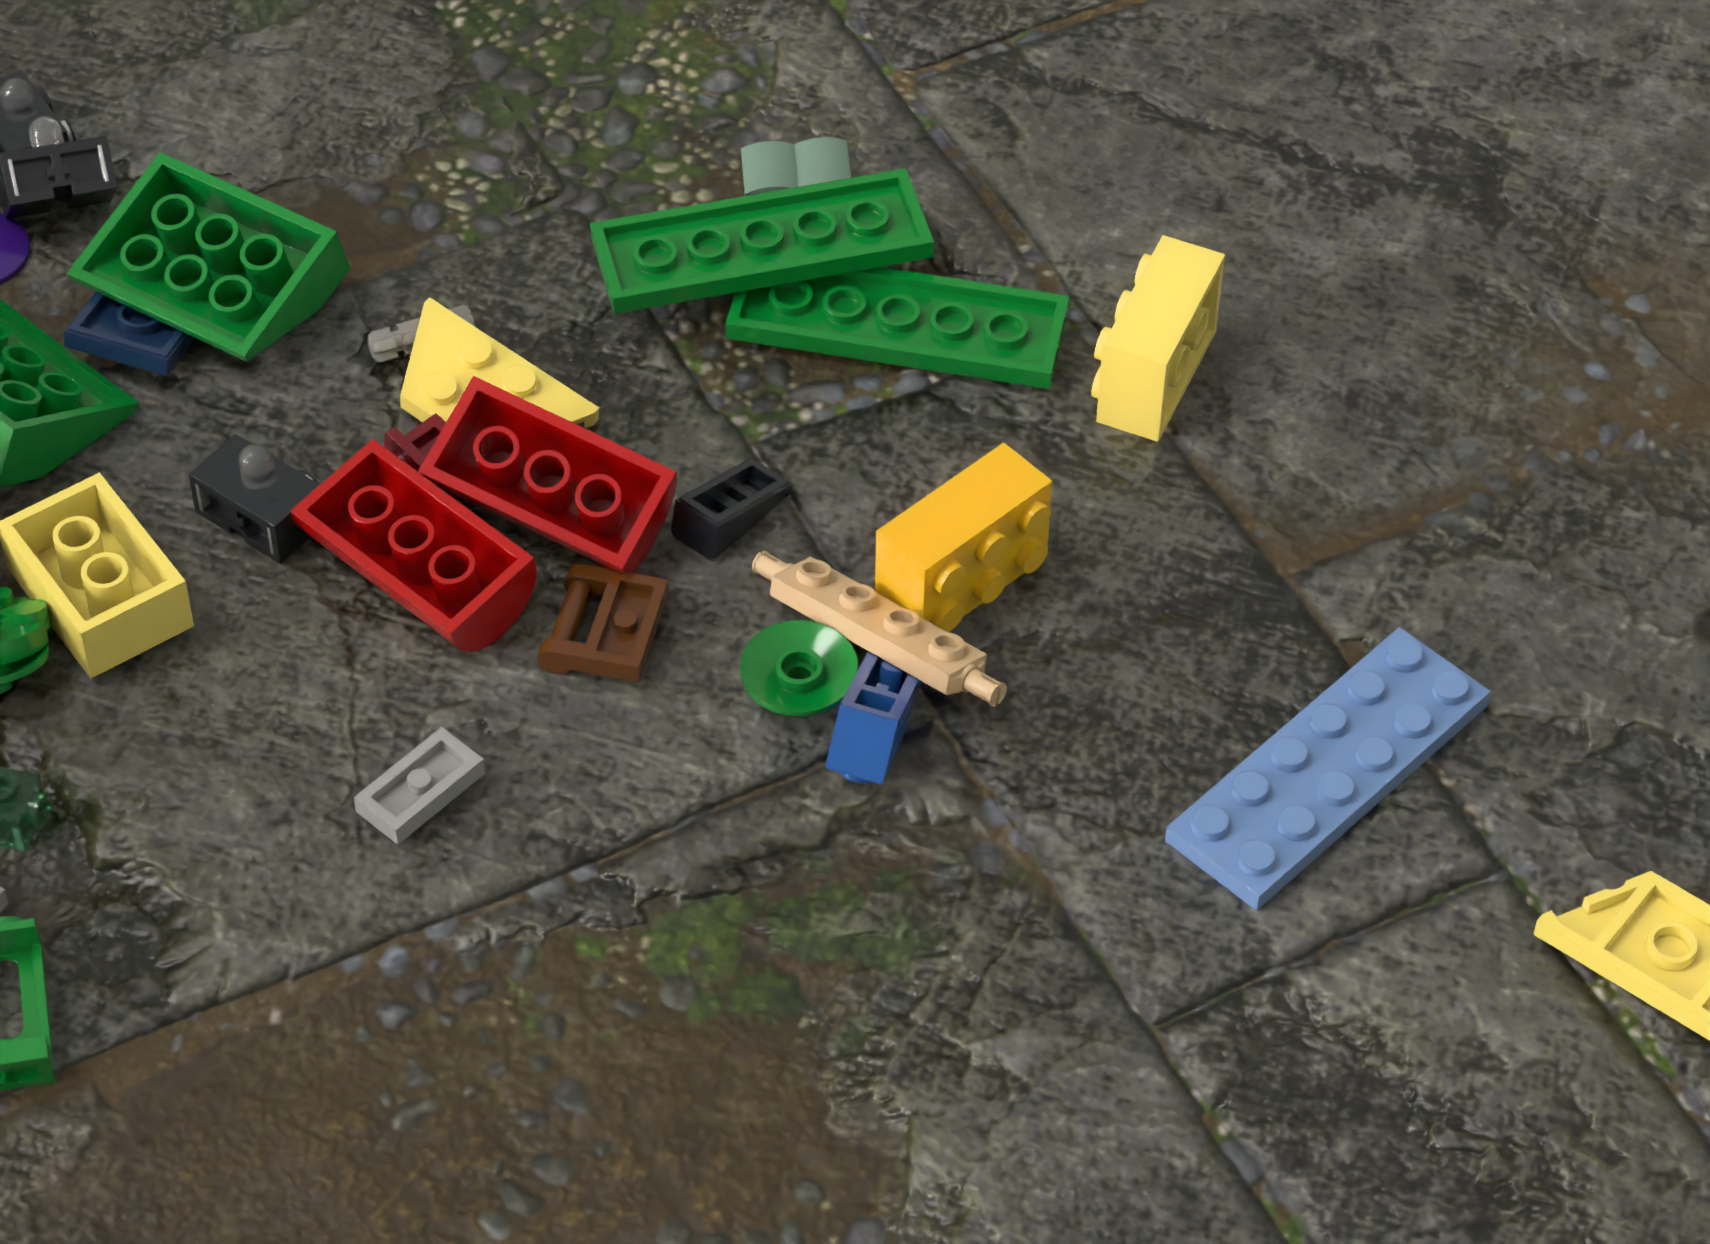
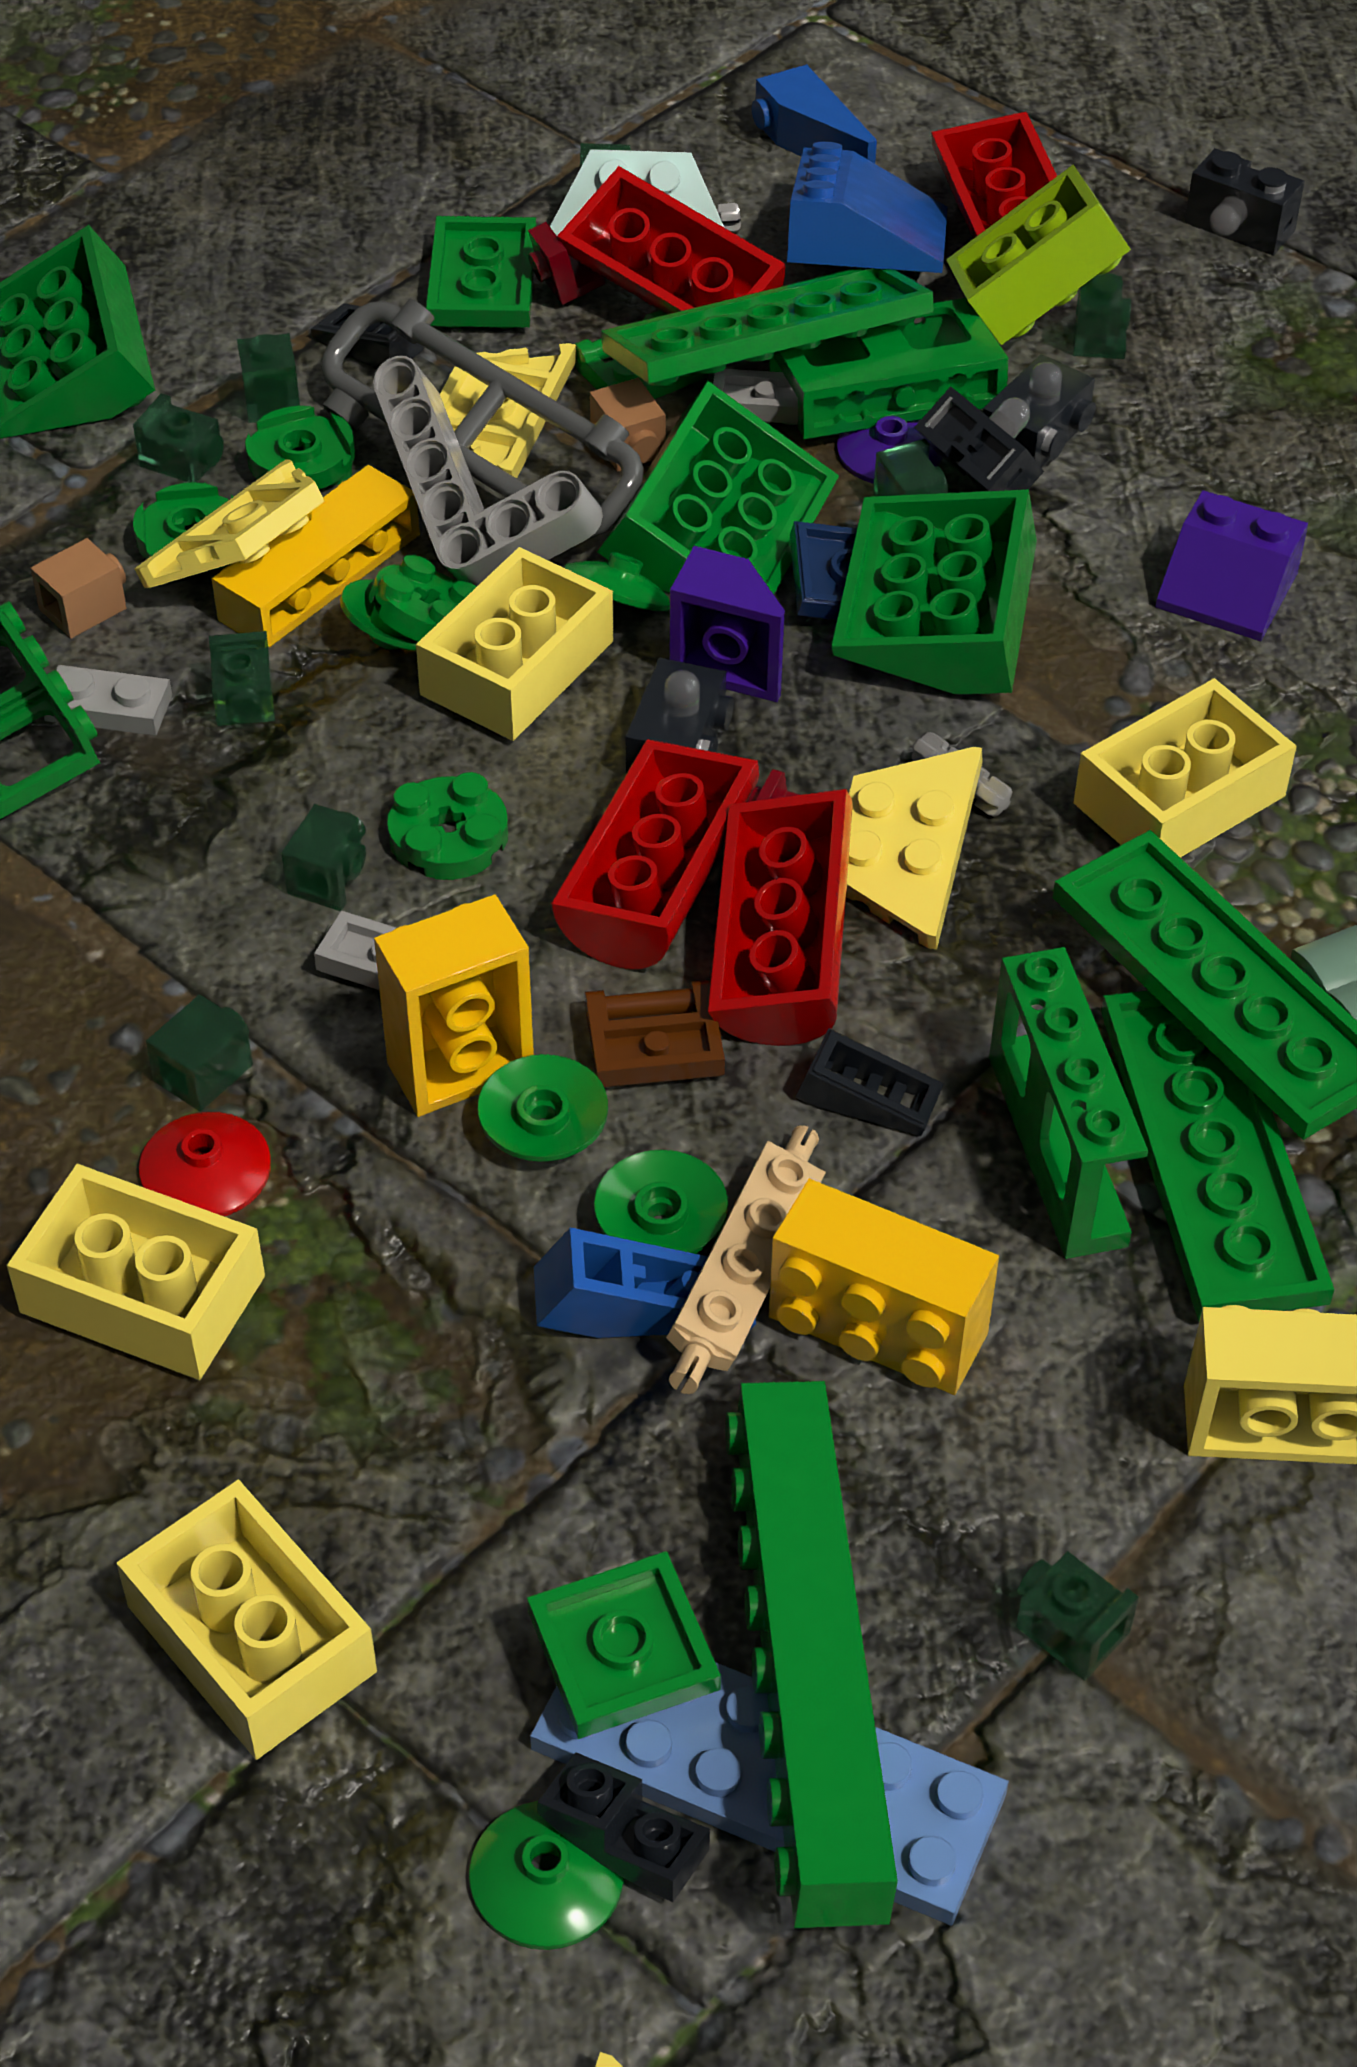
camera: 70 degrees right, 0 degrees up
(52, 242) = (907, 471): none -> clear green brick
(53, 475) = (624, 578): none -> green dish
(177, 412) = (728, 622): none -> dark purple slope
(270, 674) = (460, 800): none -> green plate
(276, 795) = (324, 856): none -> clear green brick
(293, 76) = (1232, 565): none -> dark purple slope
(466, 946) = (200, 1052): none -> clear green brick
(525, 188) = (1185, 771): none -> light yellow brick
(551, 719) = (454, 1001): none -> yellow brick
(580, 1005) = (215, 1181): none -> red dish
(652, 700) = (542, 1089): none -> green dish
(708, 1039) = (137, 1271): none -> light yellow brick
(838, 400) = (1047, 1086): none -> green window
(1097, 1041) = (248, 1618): none -> light yellow brick
(1223, 799) = (623, 1644): none -> green plate
(1264, 686) = (810, 1660): none -> green brick
(1281, 541) = (1074, 1613): none -> clear green brick
(1360, 862) = (606, 1819): none -> black slope
(1361, 946) = (536, 1905): none -> green dish

